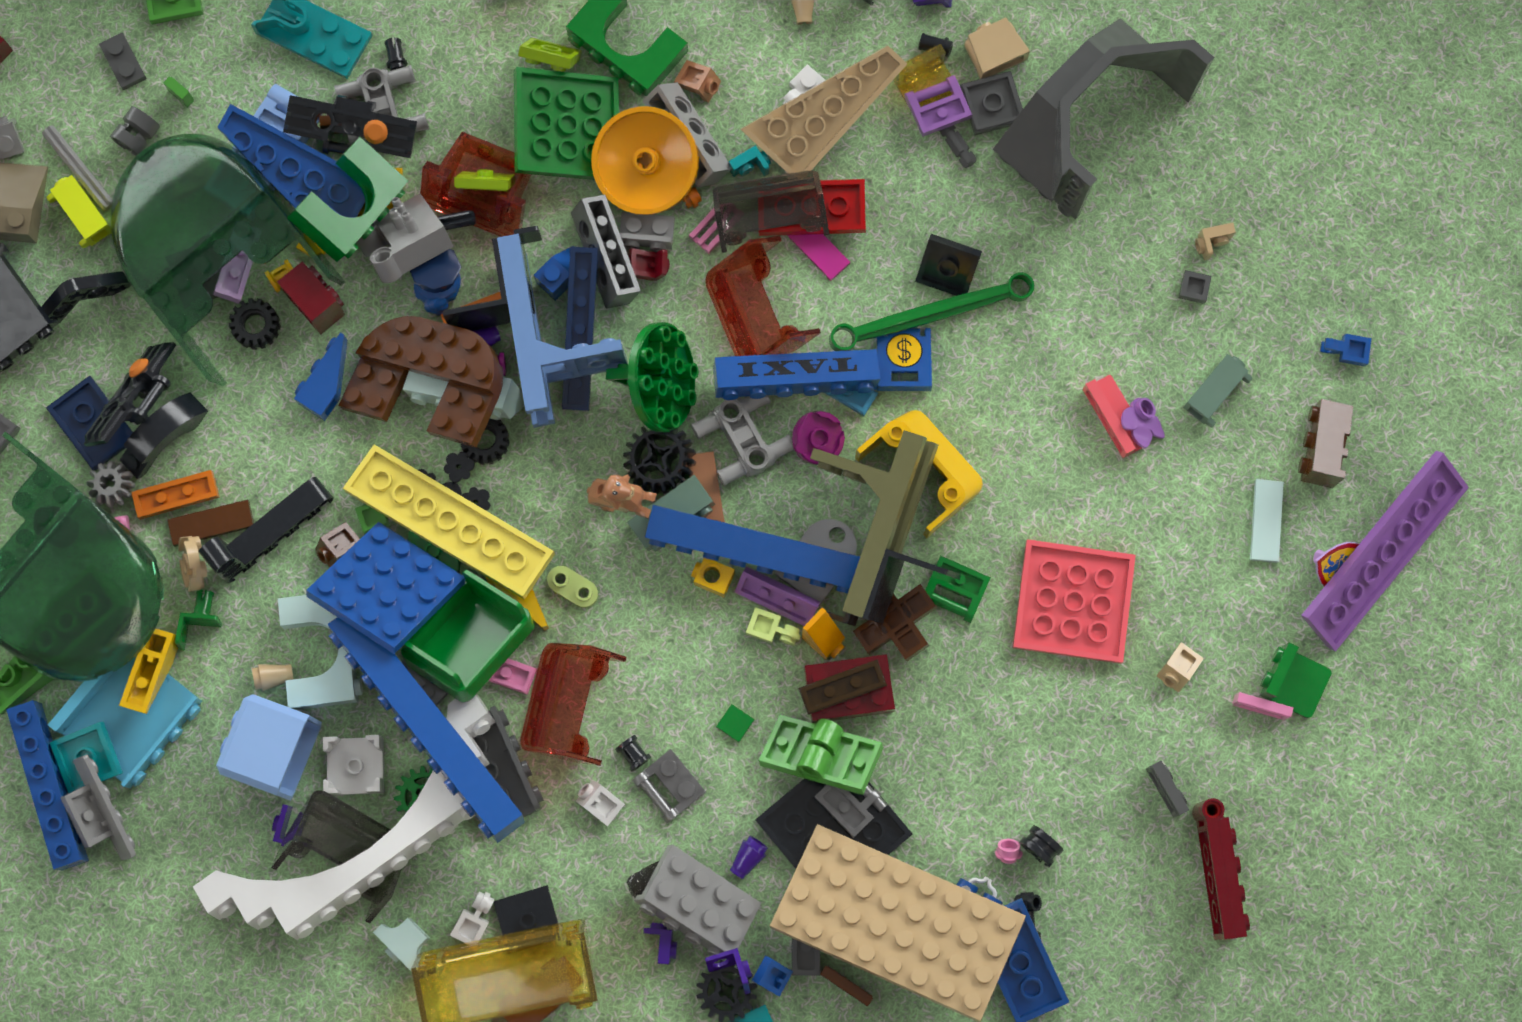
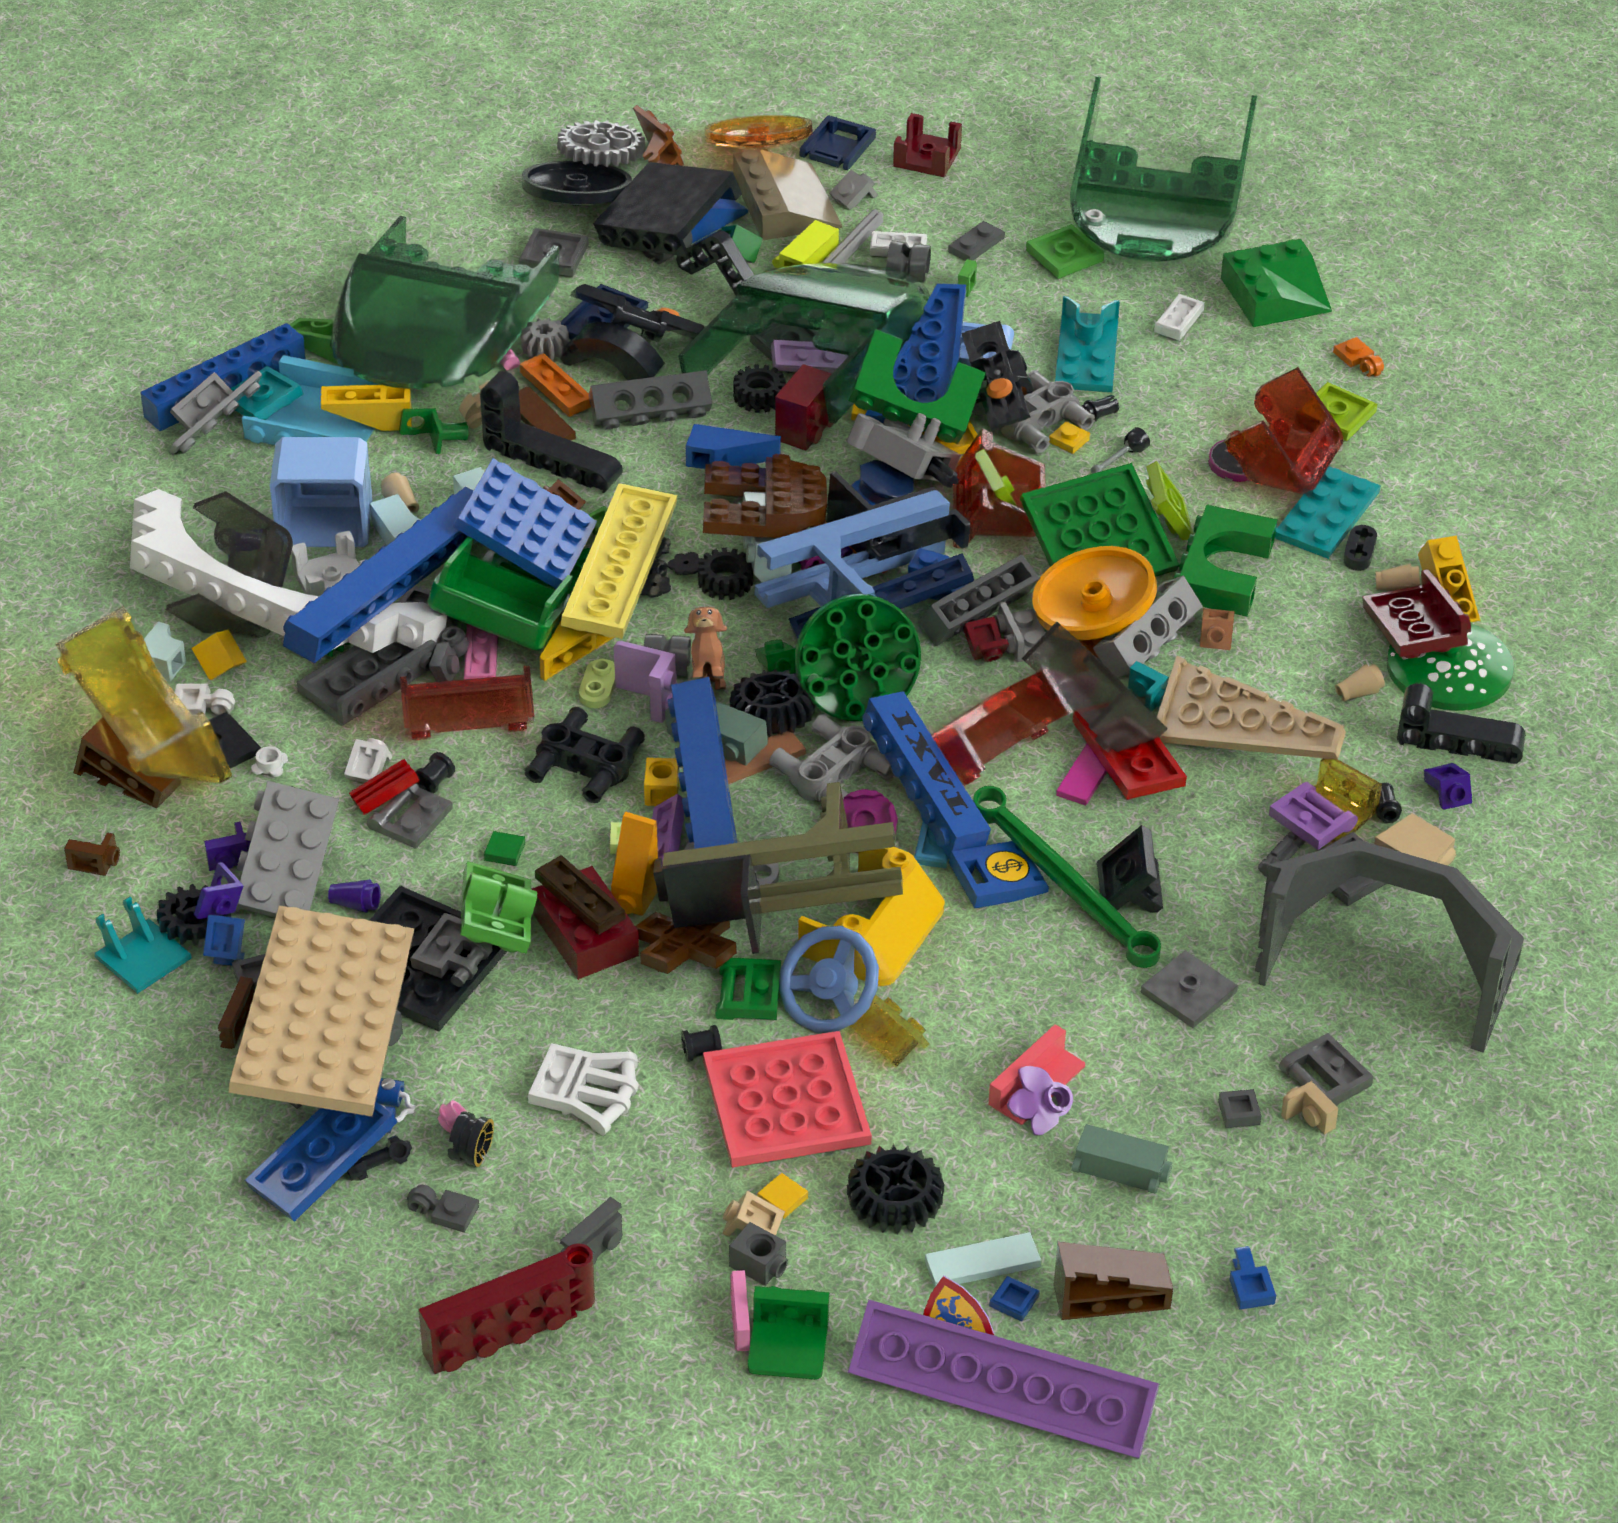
camera: 70 degrees right, 35 degrees down
(43, 268) = (746, 241): none -> green panel
(97, 134) = (881, 240): none -> white plate
(222, 459) = (692, 385): none -> dark grey brick
(420, 94) = (1069, 437): none -> yellow plate
(421, 889) = (218, 654): none -> yellow panel
(450, 46) = (1134, 441): none -> black hinge
(509, 704) = (445, 659): none -> dark grey plate
(558, 883) = (269, 761): none -> white plate
(570, 521) = (677, 645): none -> dark grey wheel
(600, 536) = (647, 673): none -> lavender bracket
(604, 434) = (777, 656): none -> green bracket
(627, 798) = (384, 786): none -> red tile
(658, 625) = (581, 751): none -> black piece
(983, 529) = (830, 979): none -> medium blue piece
(999, 643) = (698, 1042): none -> black bush
(1000, 758) = (563, 1080): none -> white plate
(1034, 502) = (888, 1031): none -> clear yellow bracket
(1066, 270) = (1189, 989): none -> flat silver plate
(1094, 879) = (450, 1211): none -> dark grey plate
(1161, 637) = (784, 1194): none -> yellow tile
(1169, 570) = (899, 1197): none -> black gear
(1178, 204) = (1332, 1064): none -> flat silver plate
(1206, 680) = (758, 1254): none -> dark grey brick
(1306, 512) = (1014, 1298): none -> blue tile

